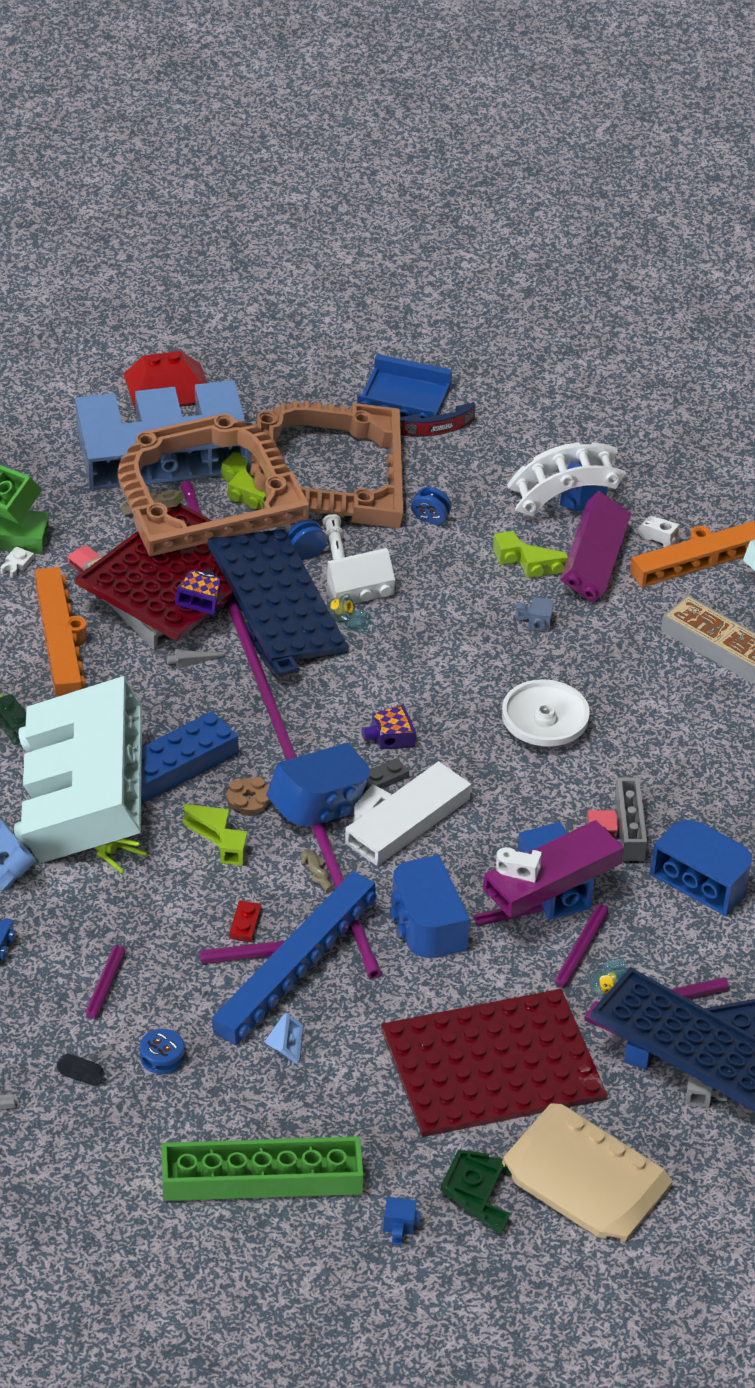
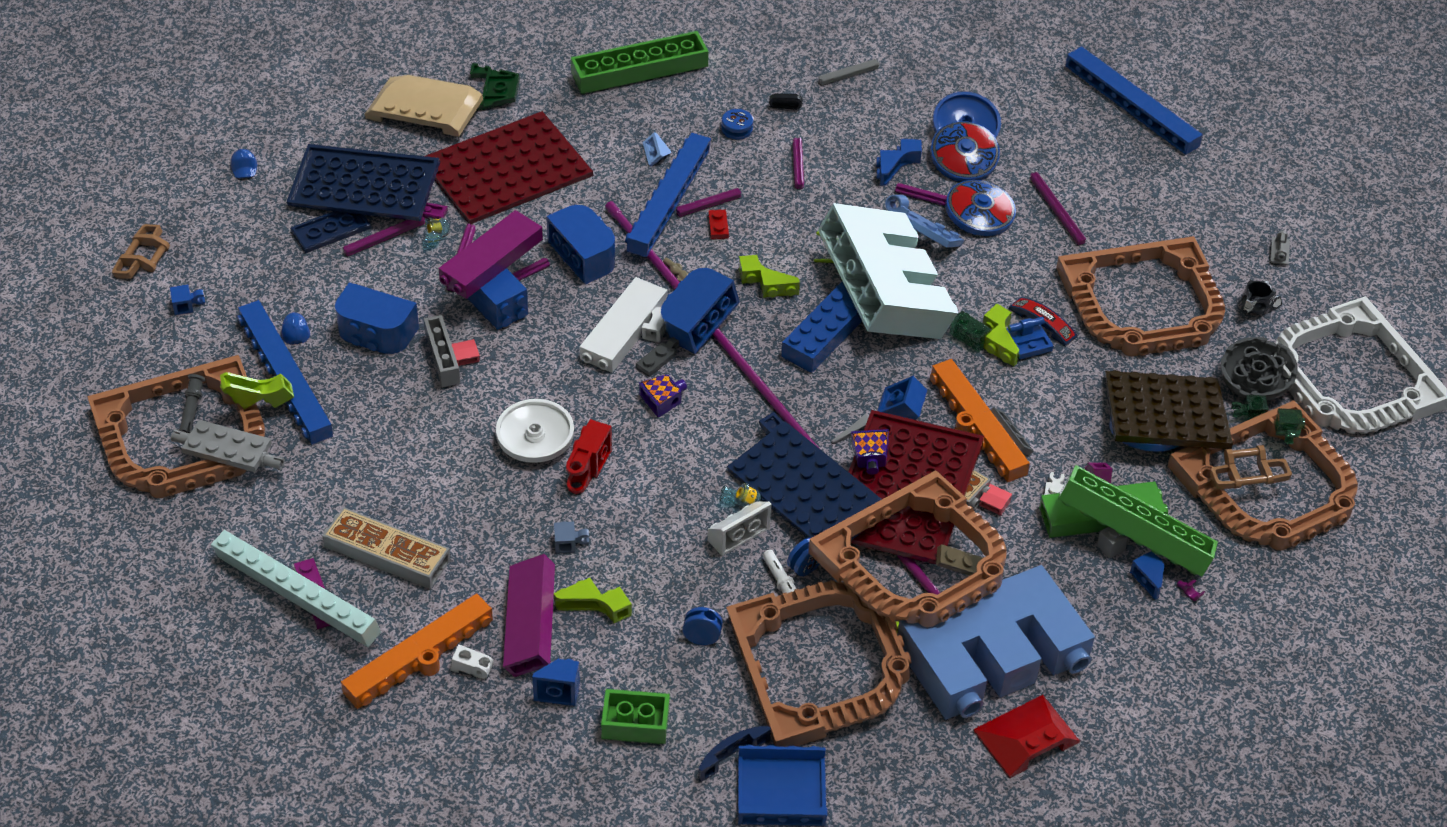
camera: 165 degrees right, 5 degrees up
(30, 614) = (1012, 431): none -> dark grey plate
(132, 662) = (903, 398): none -> blue slope
(248, 786) = (756, 309): medium nougat plate -> none
(400, 1218) = (540, 58): blue brick -> none
(494, 670) = (589, 454): none -> red brick
(511, 450) = (635, 716): none -> bright green brick
(518, 864) = (516, 227): white leg -> none
(566, 479) = (587, 682): white fence -> none

